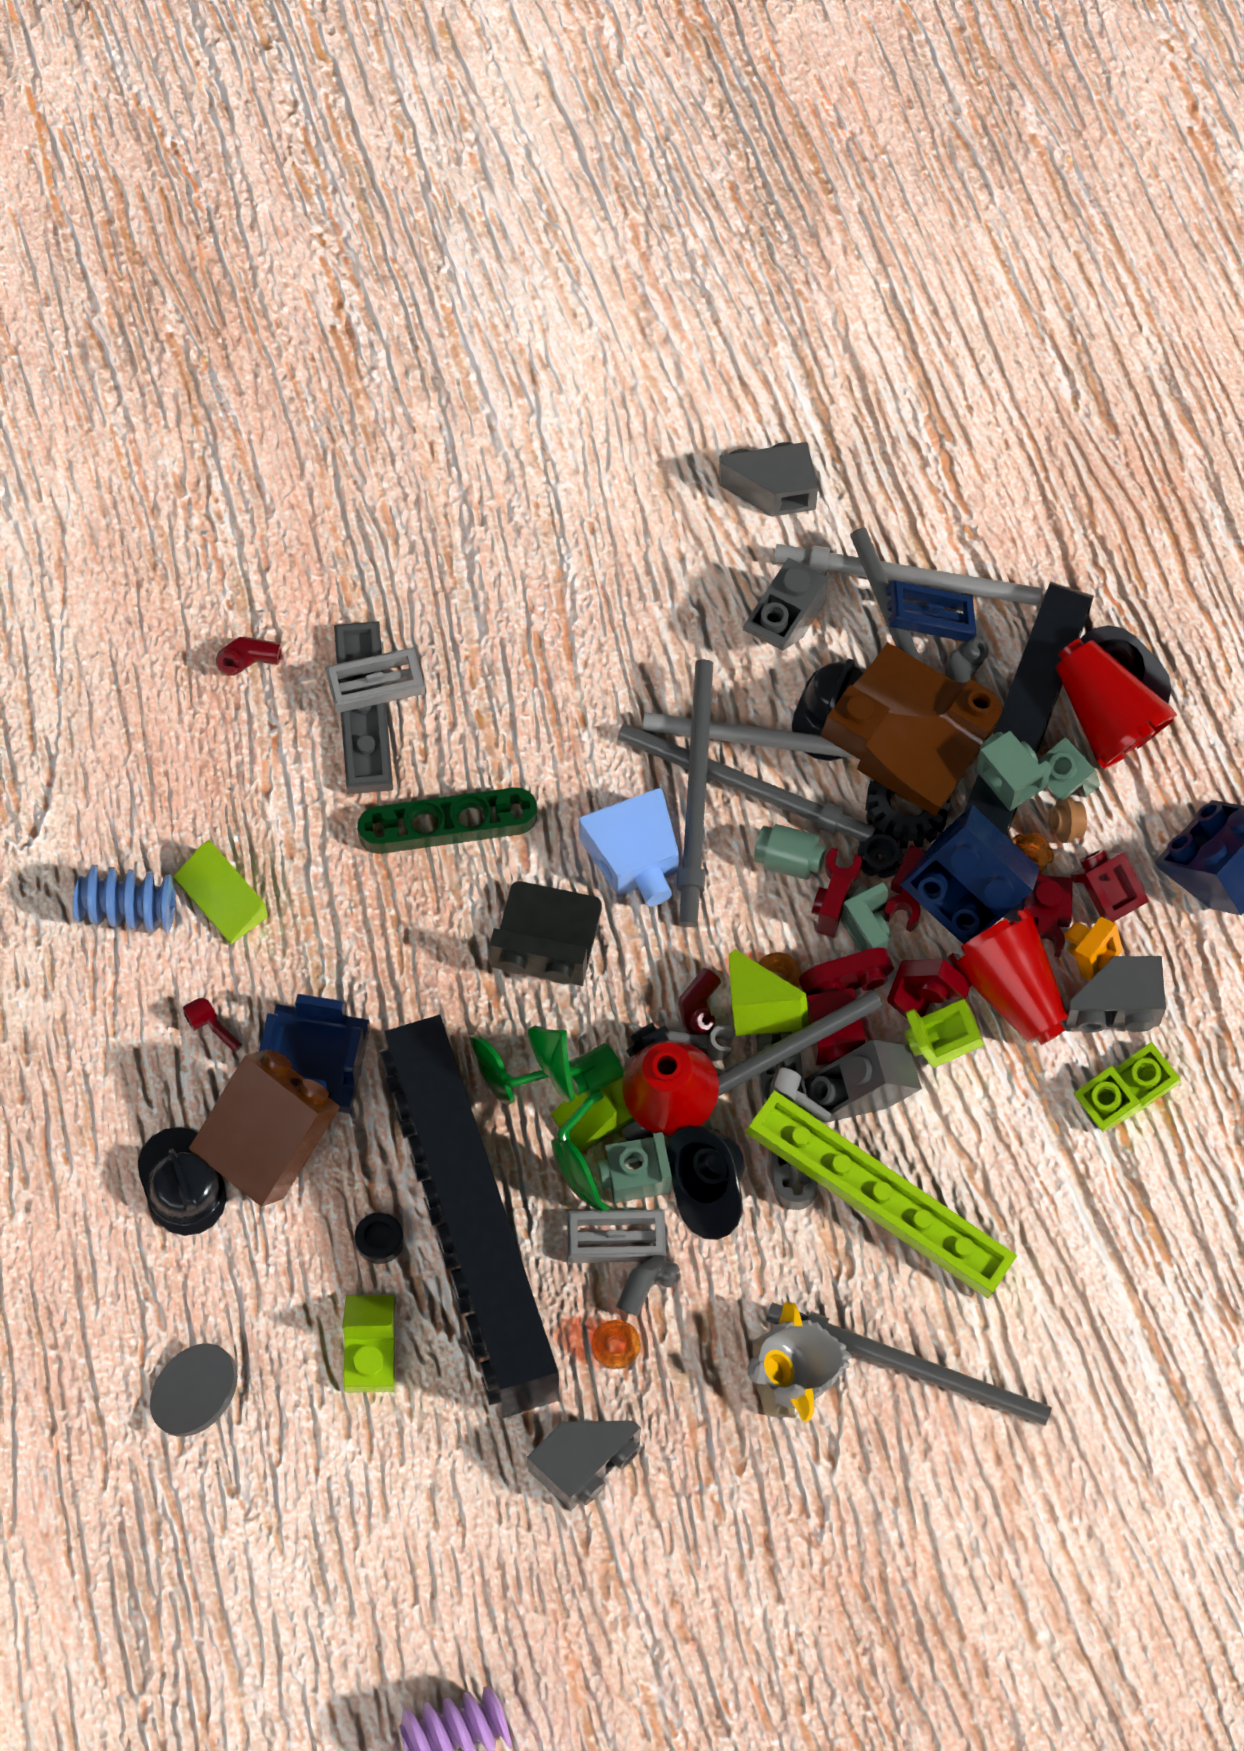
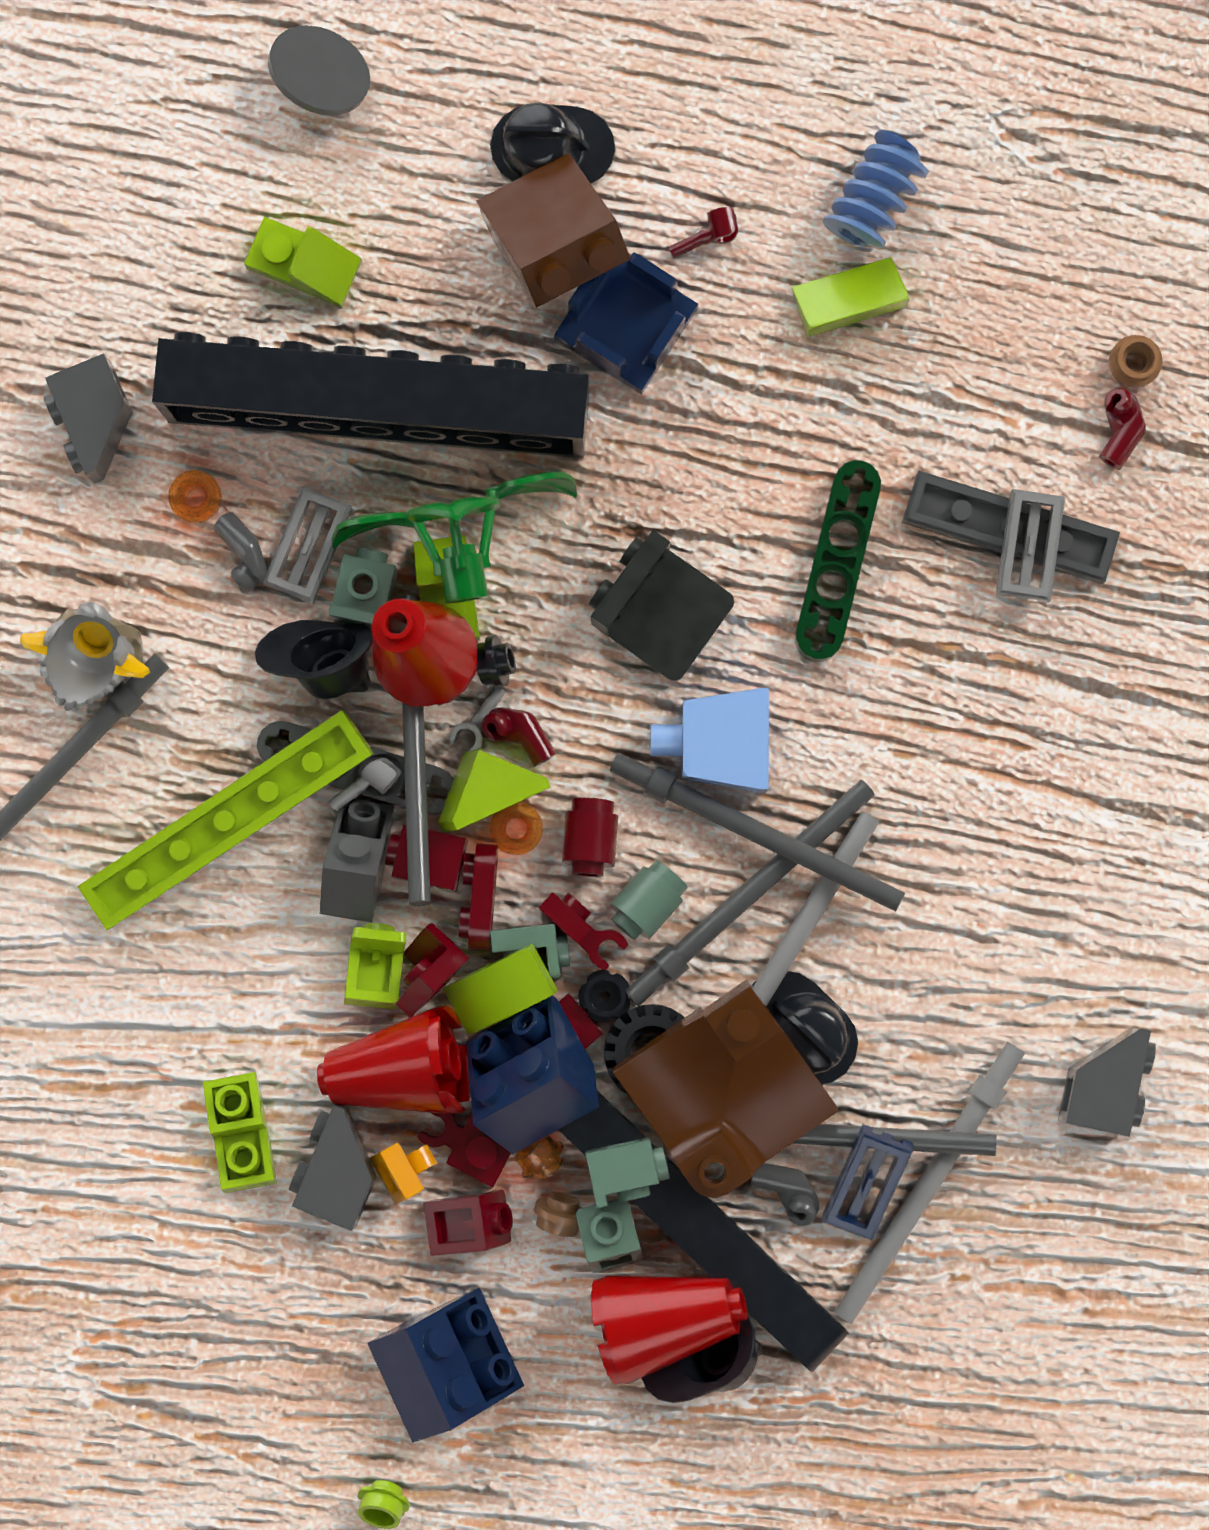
camera: 115 degrees right, 20 degrees up
(188, 653) = (1146, 350): none -> medium nougat plate
(379, 1238) = (406, 313): black tile -> none
(758, 913) = (590, 836): none -> dark red brick
(788, 605) = (931, 1020): dark grey slope -> none
(914, 922) = (500, 989): none -> lime slope

